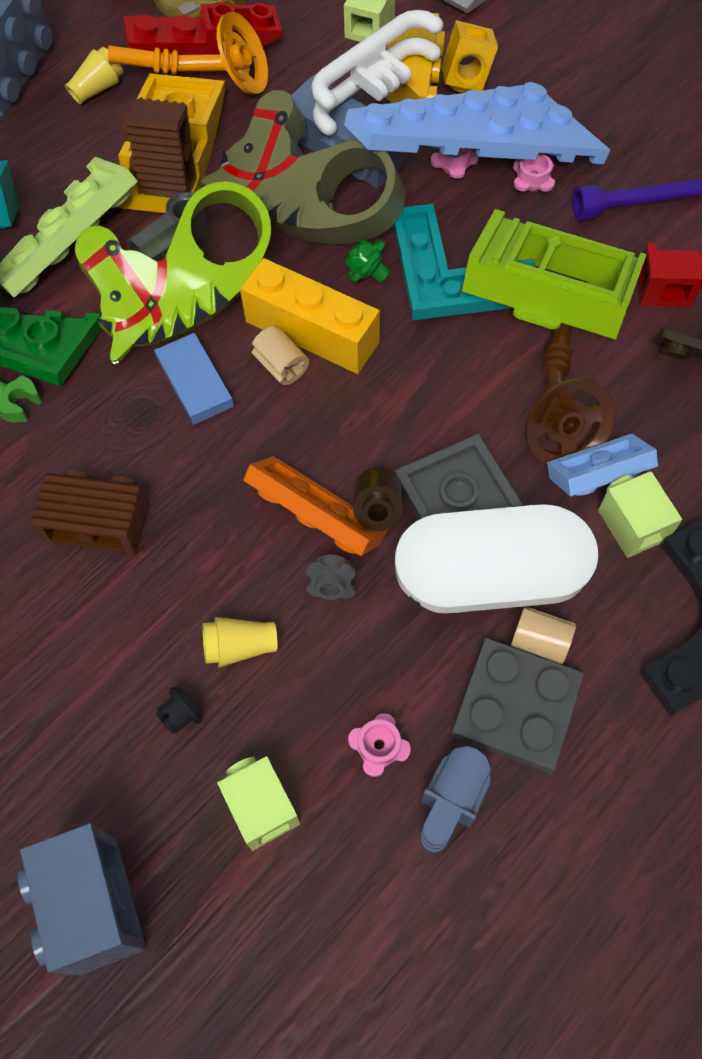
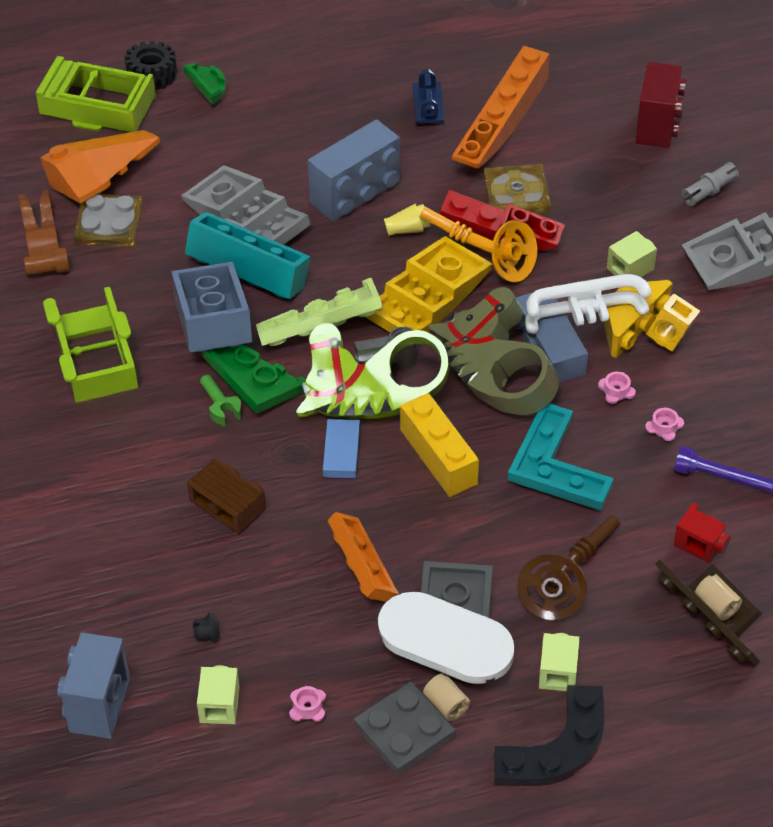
camera: 30 degrees right, 15 degrees down
(160, 147) = (409, 293): reddish brown brick -> none
(237, 640) = (263, 607): light yellow cone -> none
(280, 355) = (403, 460): tan piece -> none
(331, 578) = (342, 602): dark grey plate -> none
(366, 260) = (501, 428): green plant -> none
(377, 499) = (400, 570): dark brown brick -> none
(454, 795) = (327, 750): sand blue arm -> none
(495, 122) = (642, 373): light blue wing -> none
(547, 296) = (599, 508): lime piece -> none
(602, 464) = (551, 621): light blue plate -> none

